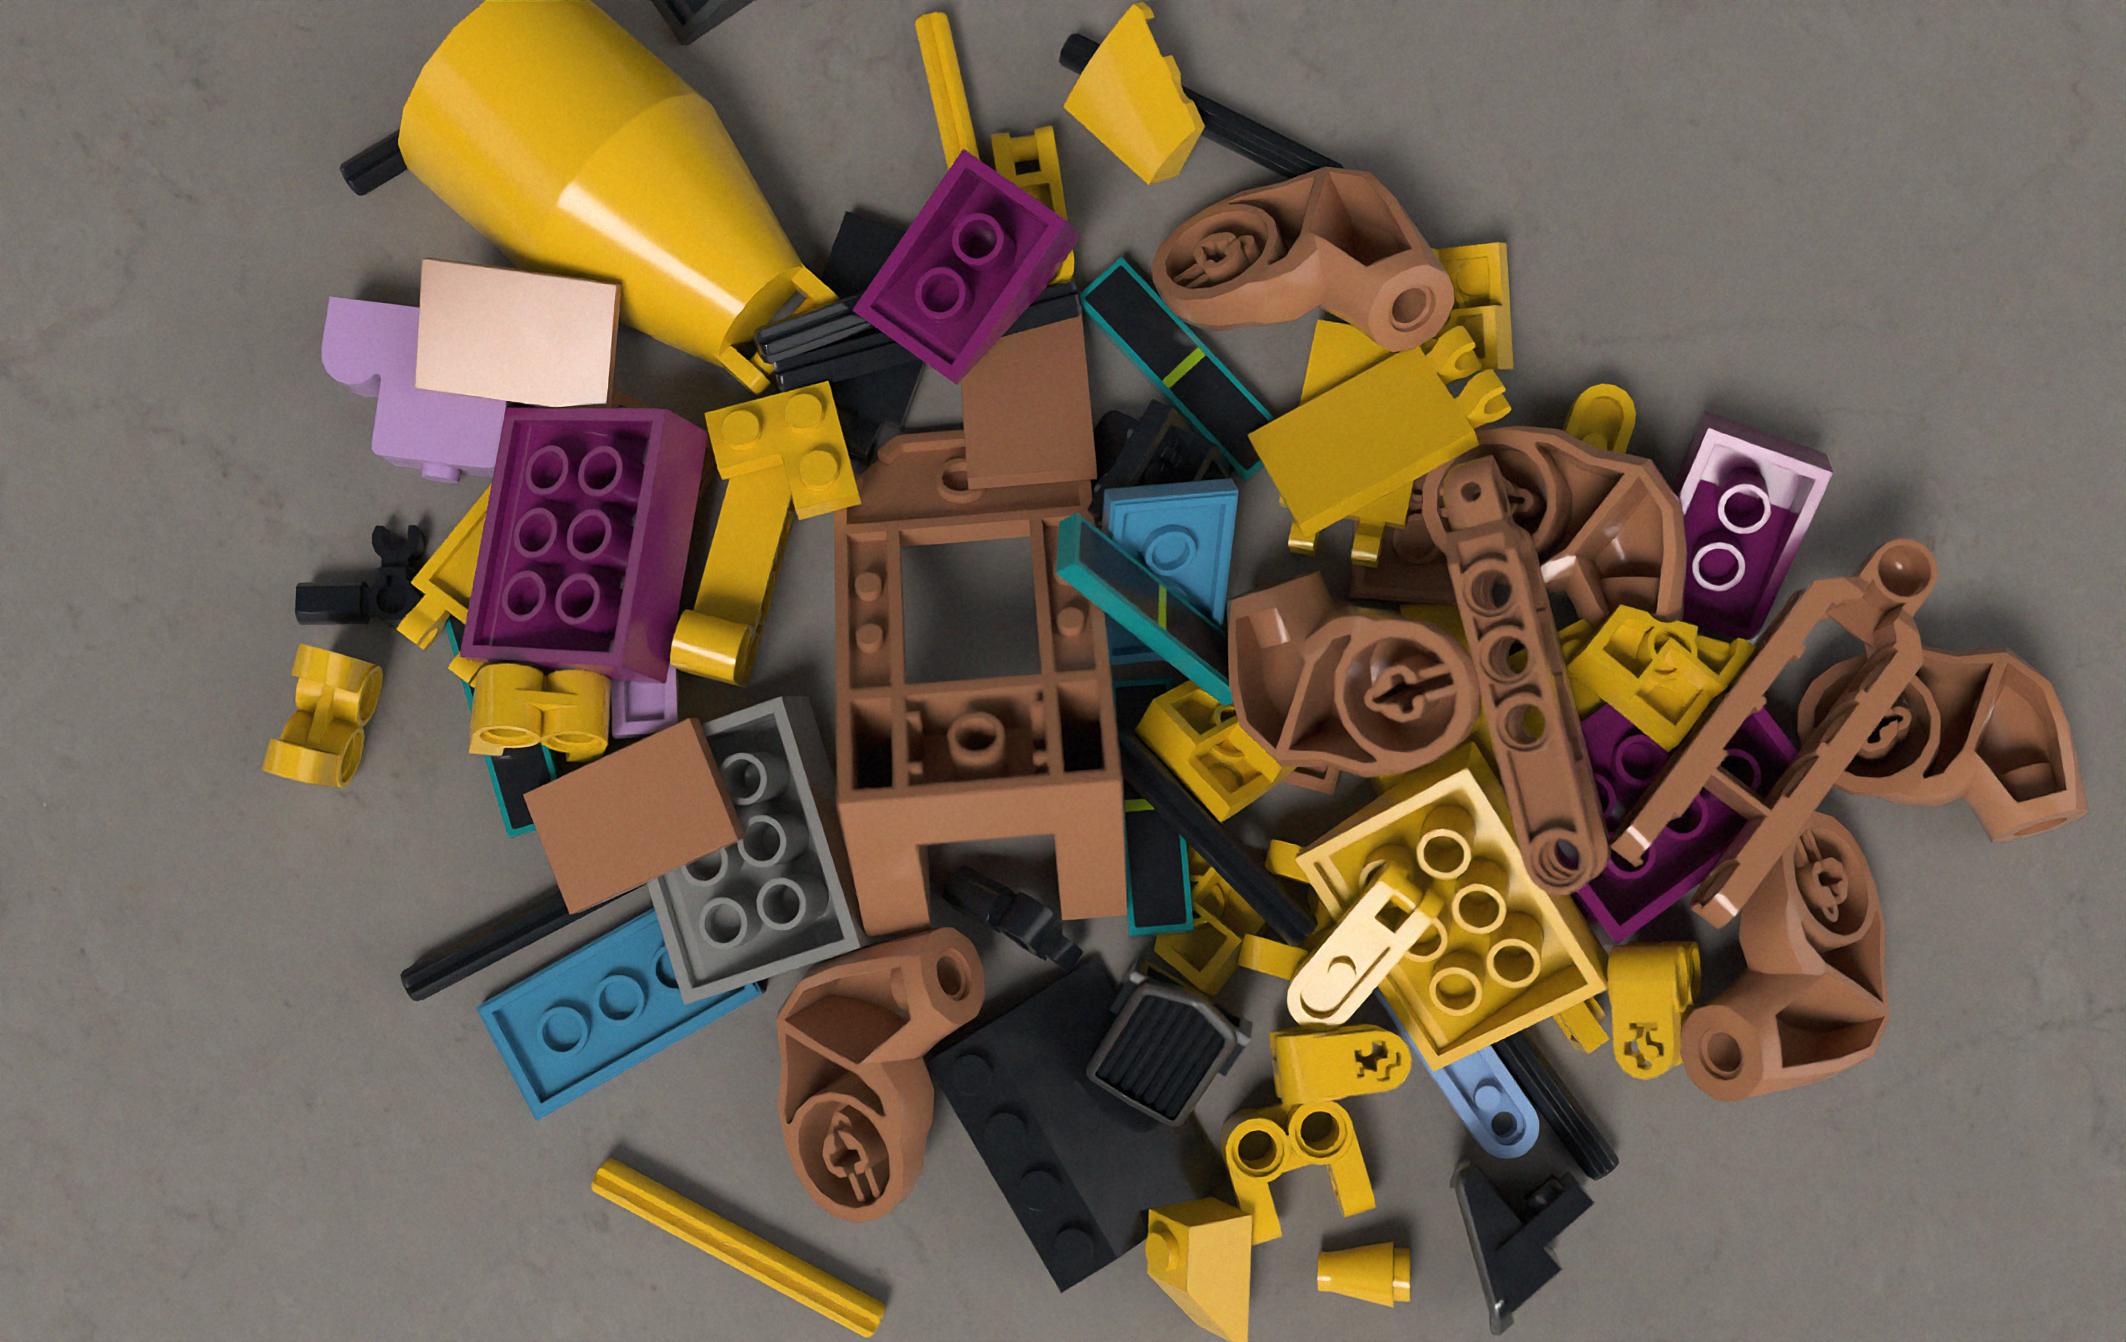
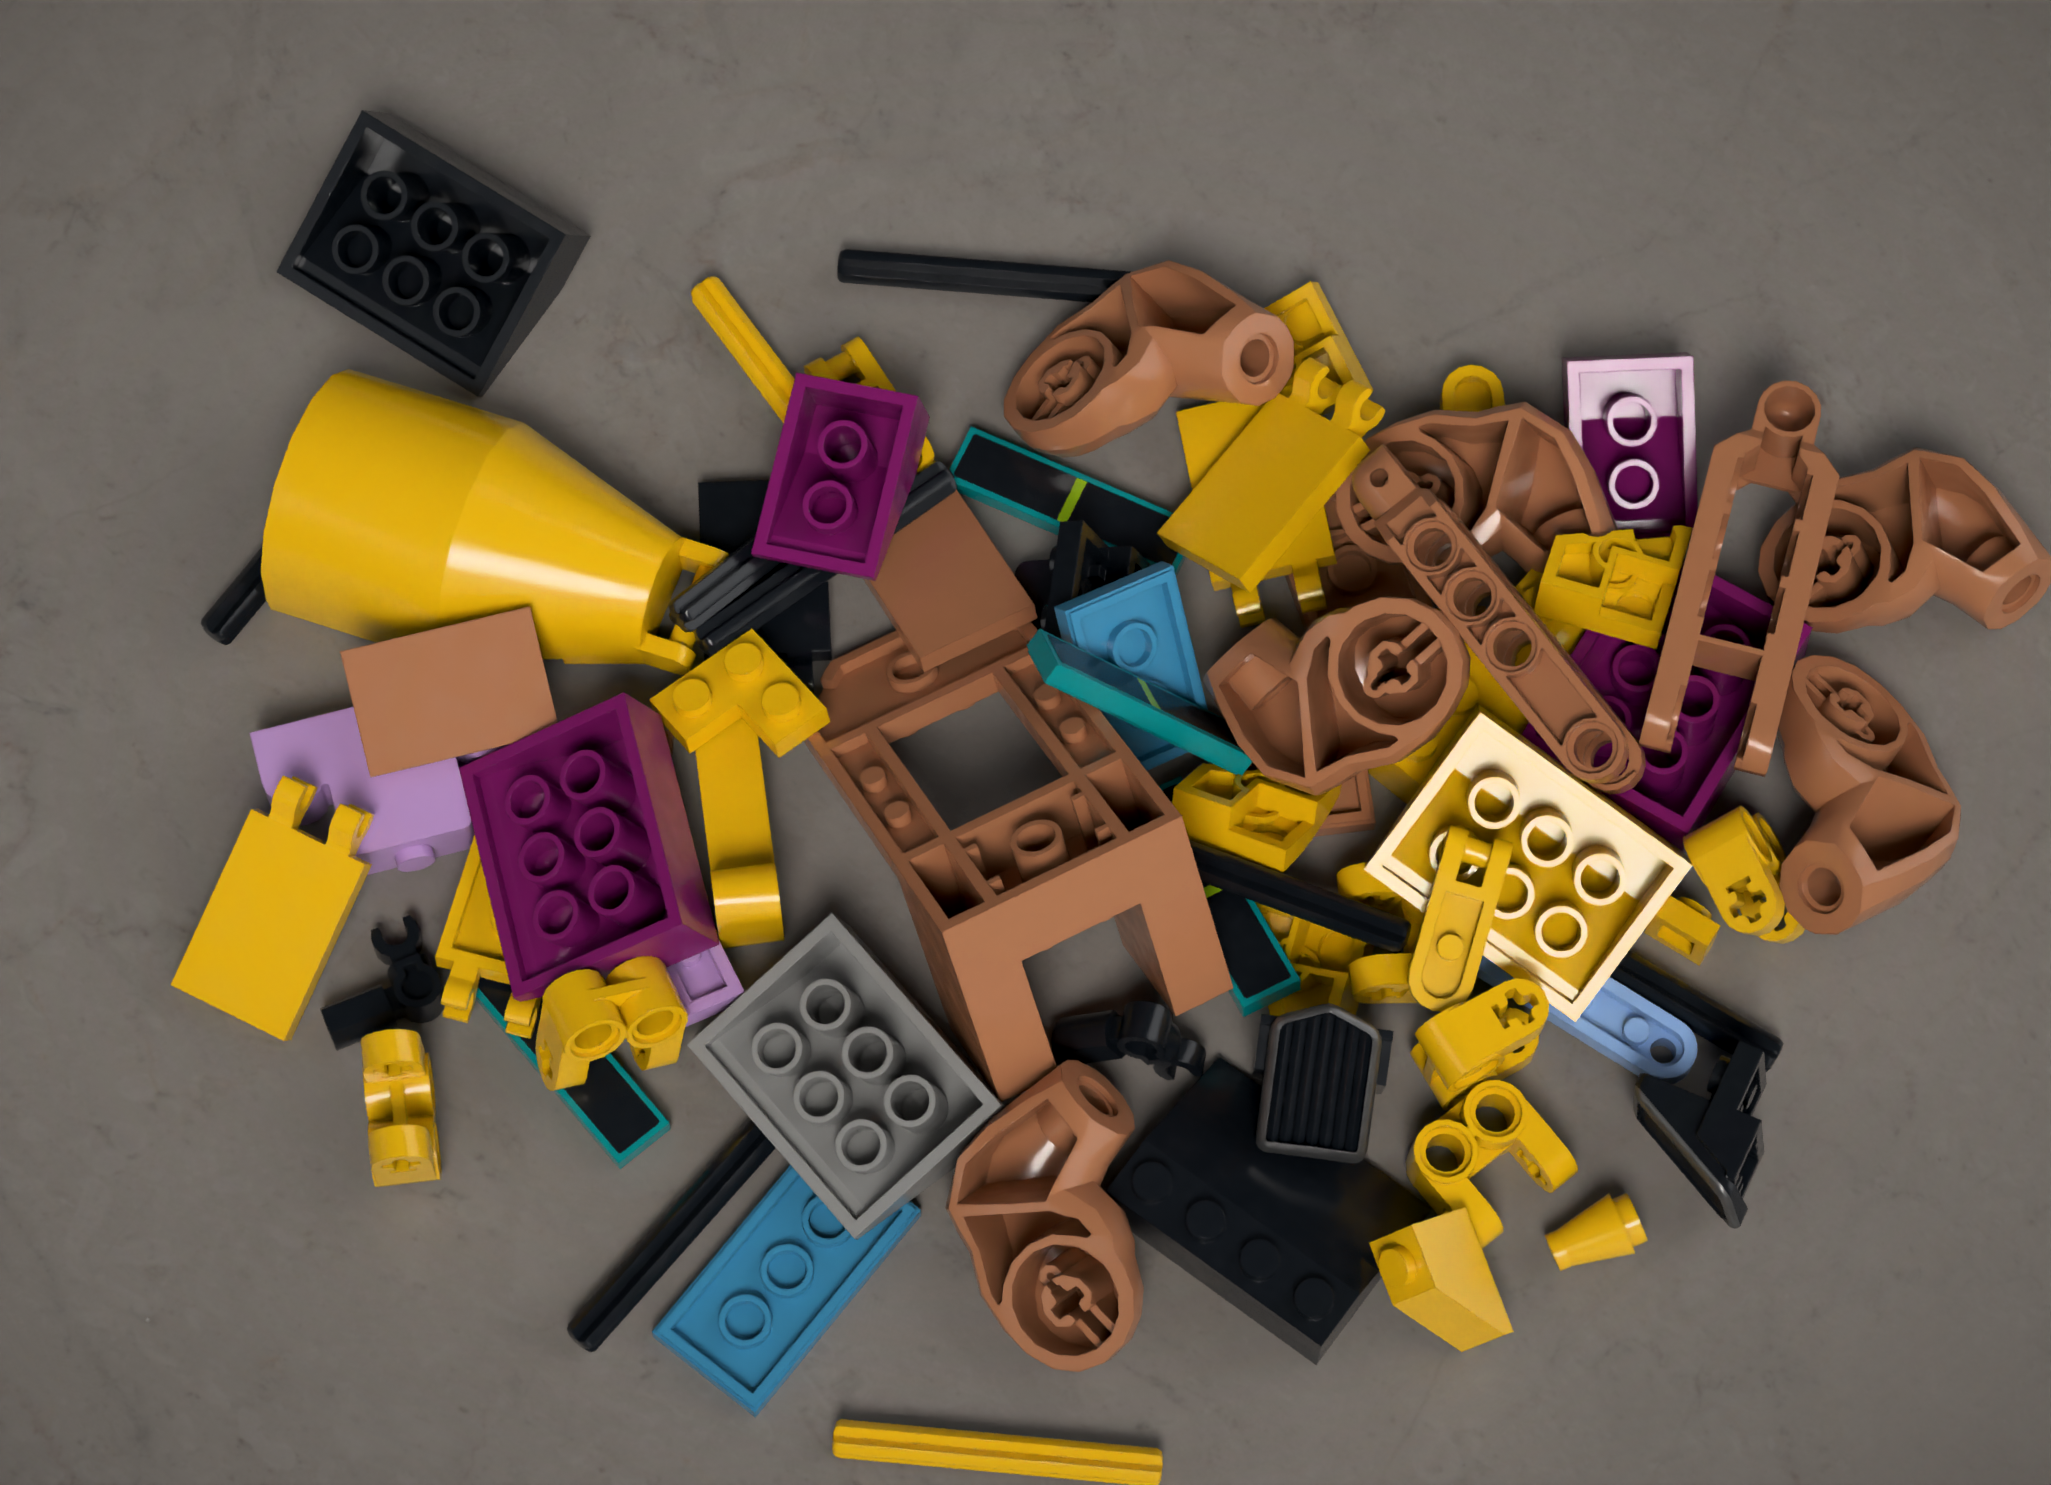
camera: 25 degrees left, 15 degrees down
(290, 477) = (276, 912): none -> yellow tile
(634, 816) = (736, 1082): nougat tile -> none
(1137, 100) = (927, 283): yellow slope -> none

